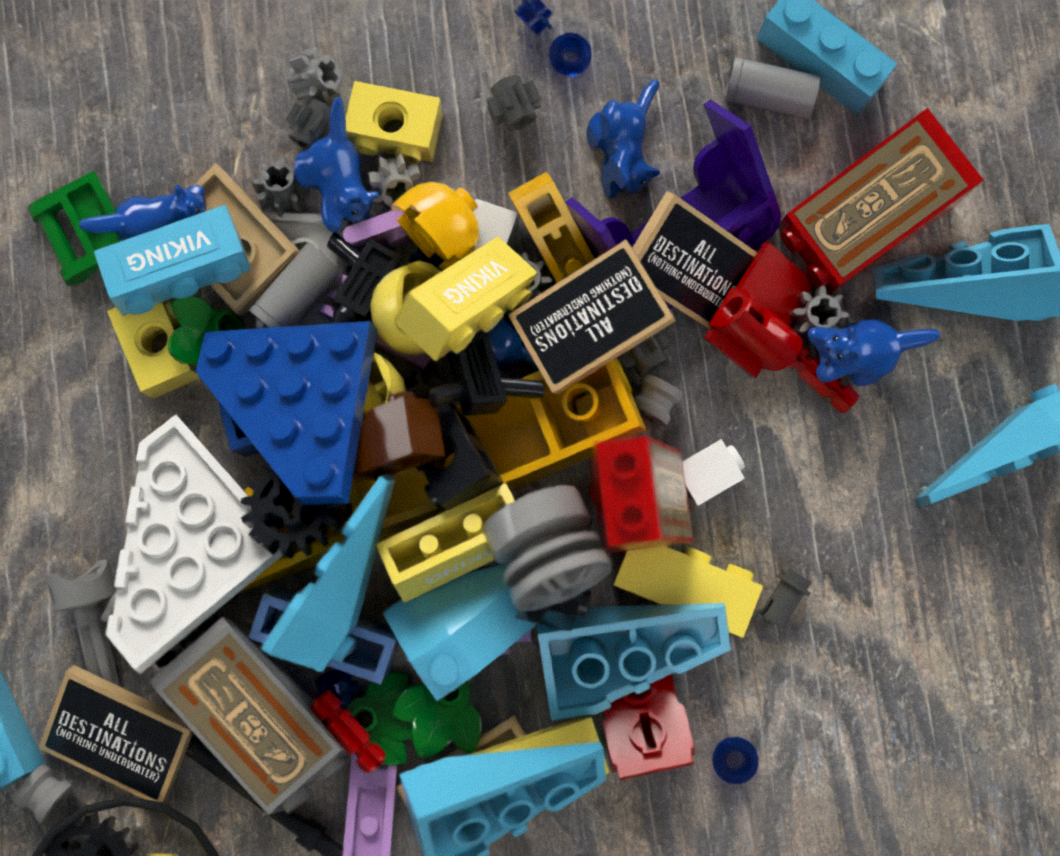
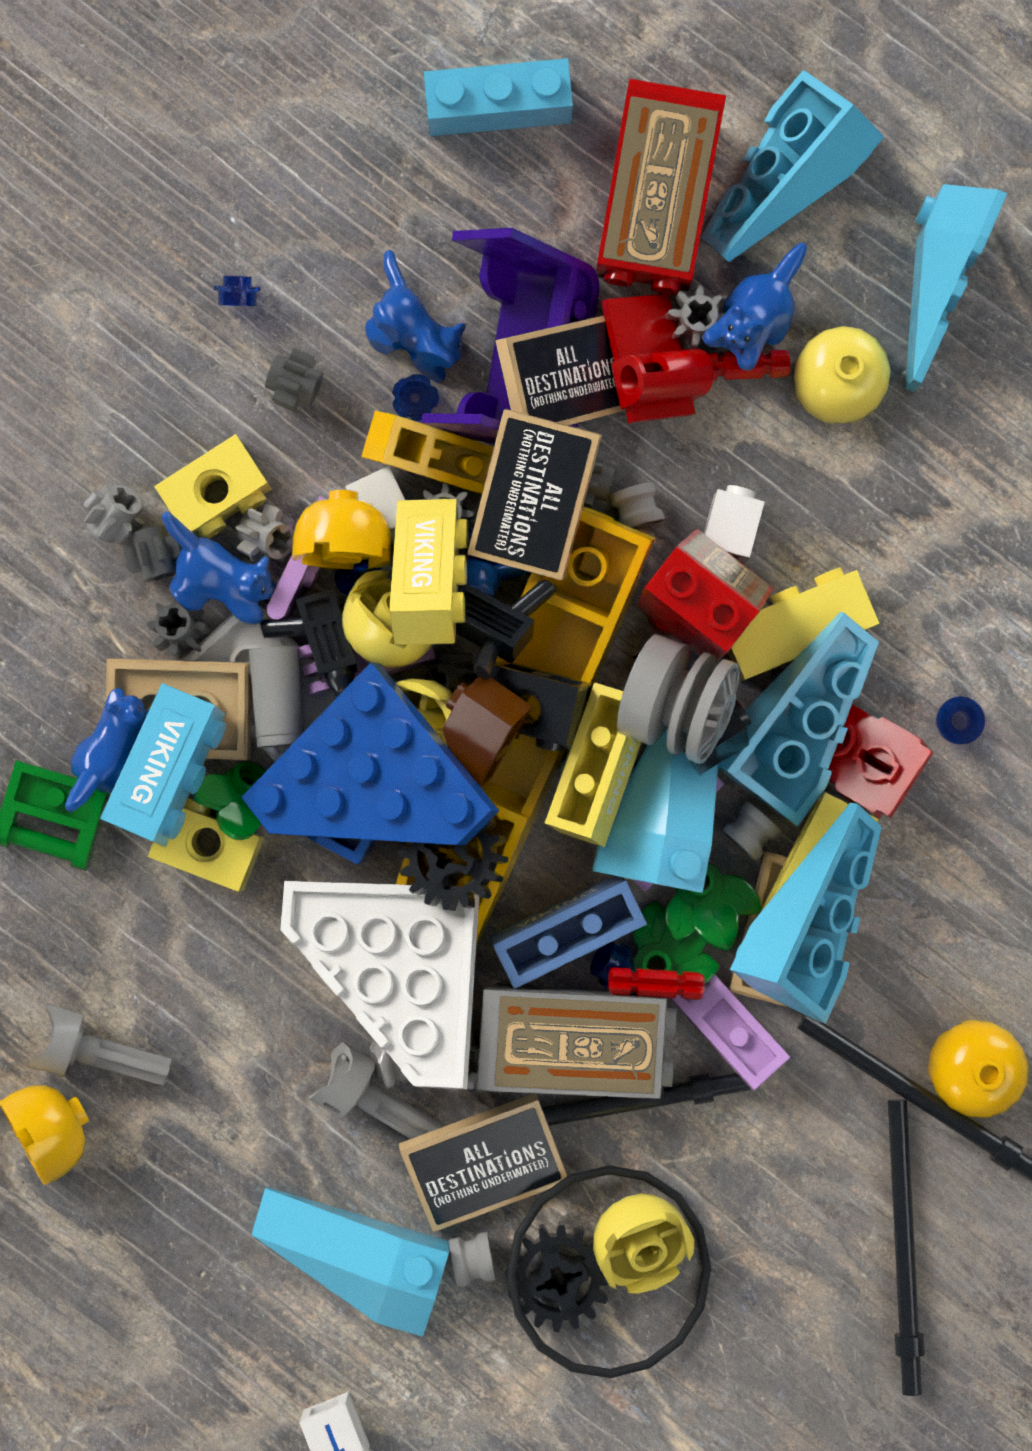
camera: 50 degrees left, 5 degrees up
(324, 615) = (558, 910): medium azure wedge -> none
(517, 692) = (751, 831): none -> light grey wheel
(570, 43) = (293, 281): clear blue plate -> none
(586, 180) = (411, 385): none -> clear blue plate
(772, 88) = (484, 168): light grey pin -> none
(785, 598) = (881, 562): dark grey pin -> none
(880, 447) = (841, 375): none -> light yellow cylinder

